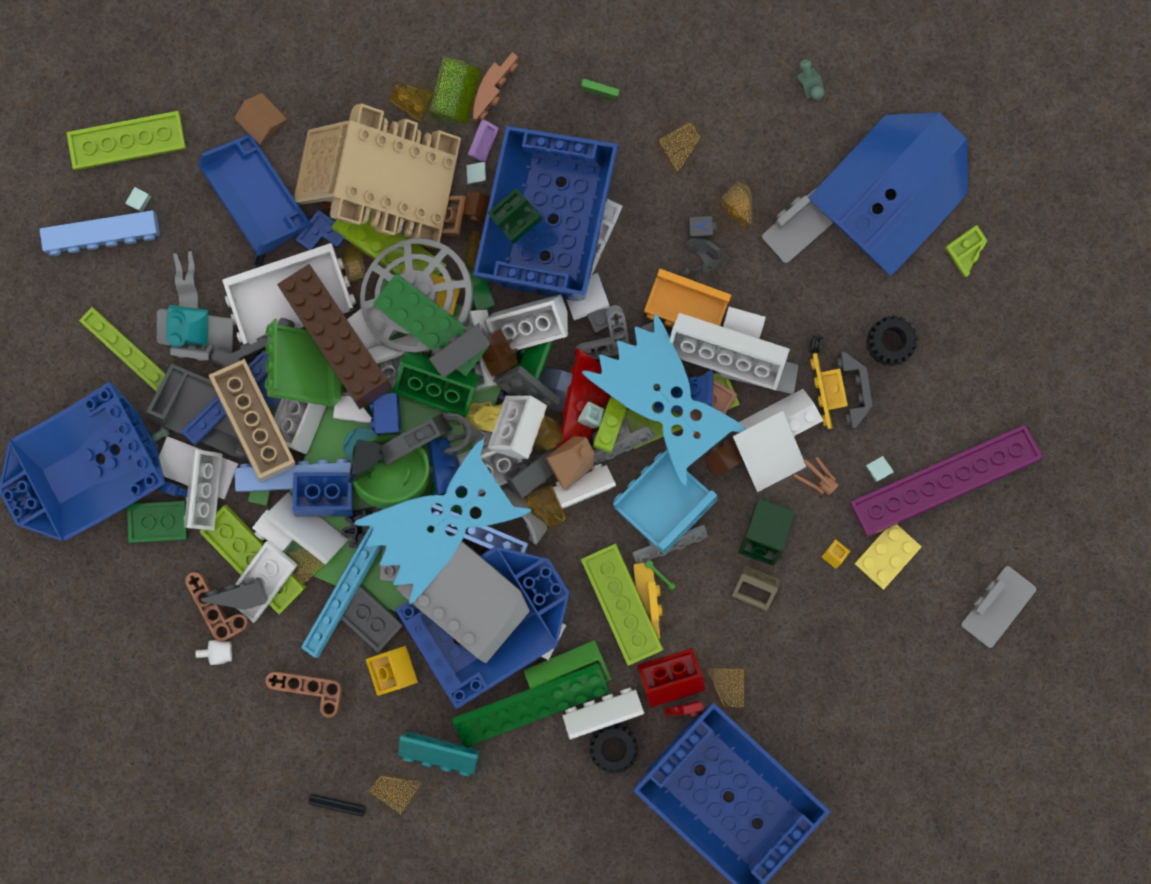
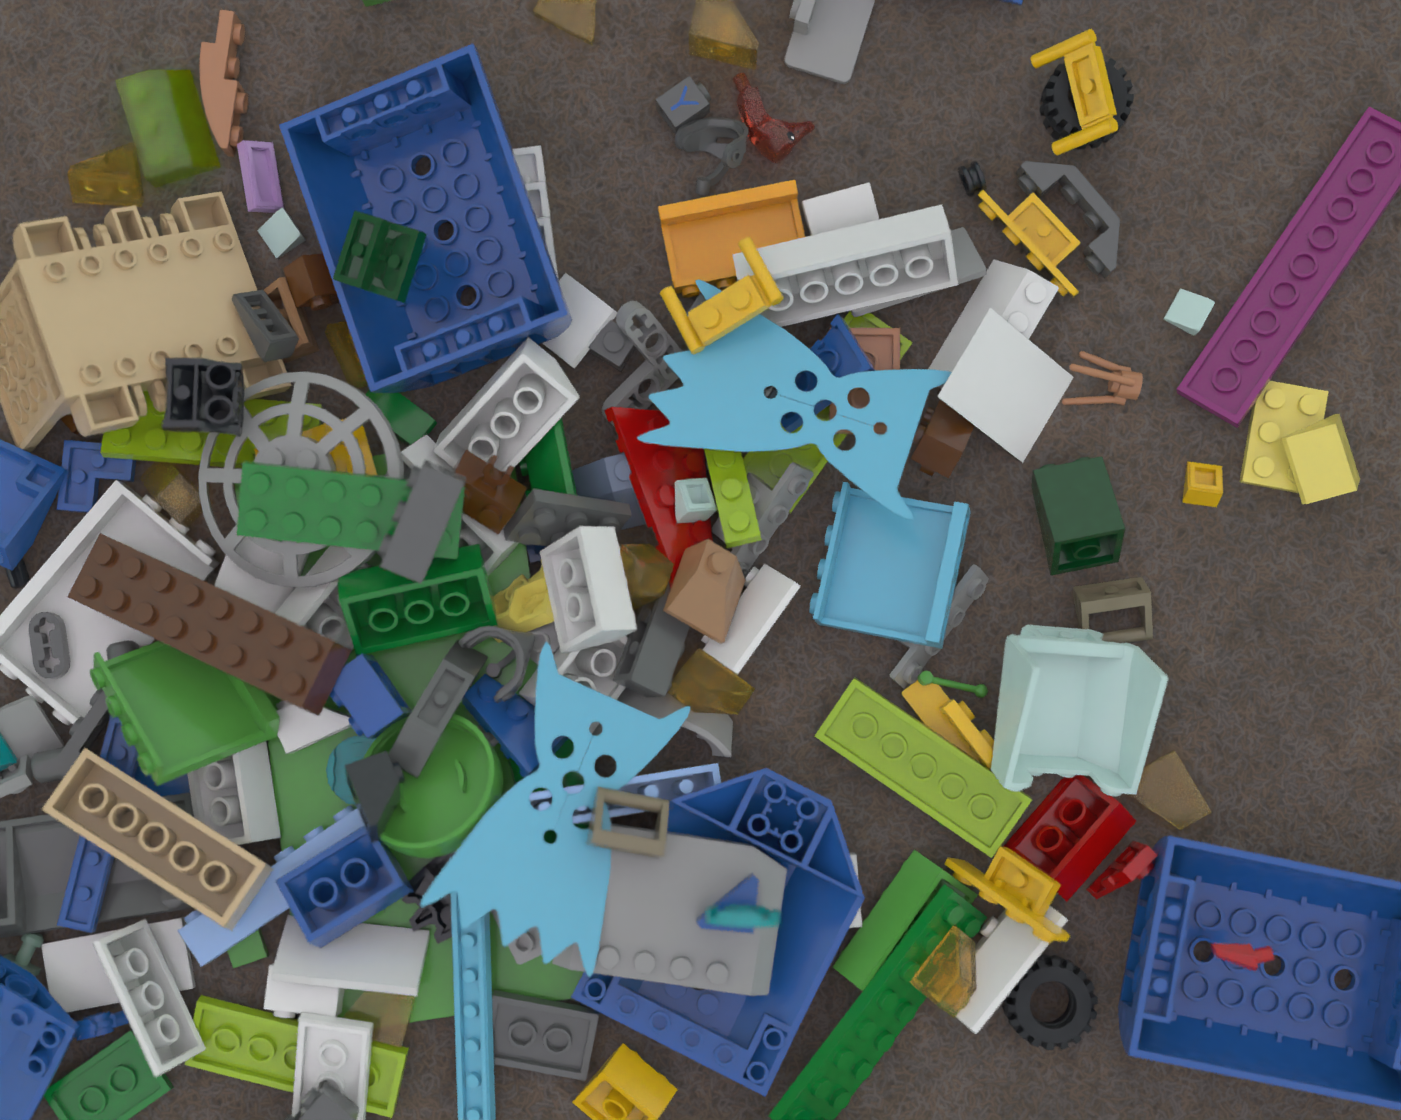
camera: 30 degrees left, 0 degrees up
(249, 298) = (40, 645): none -> dark grey beam
(396, 231) = (204, 396): none -> black slope
(439, 223) = (269, 345): none -> dark grey slope
(460, 550) = (624, 842): none -> dark tan tile
(494, 613) = (742, 894): none -> blue slope
(495, 616) = (743, 916): none -> teal tile
(575, 705) = (949, 972): none -> clear yellow slope
(630, 685) = (1017, 887): none -> yellow bracket
(661, 336) = (729, 307): none -> yellow plate
(707, 619) = (1075, 709): none -> light aqua windscreen
(713, 777) = (1243, 954): none -> red bar
(732, 267) = (770, 136): none -> clear red animal
(893, 336) = (1088, 86): none -> yellow plate
(897, 576) = (1321, 460): none -> light yellow slope

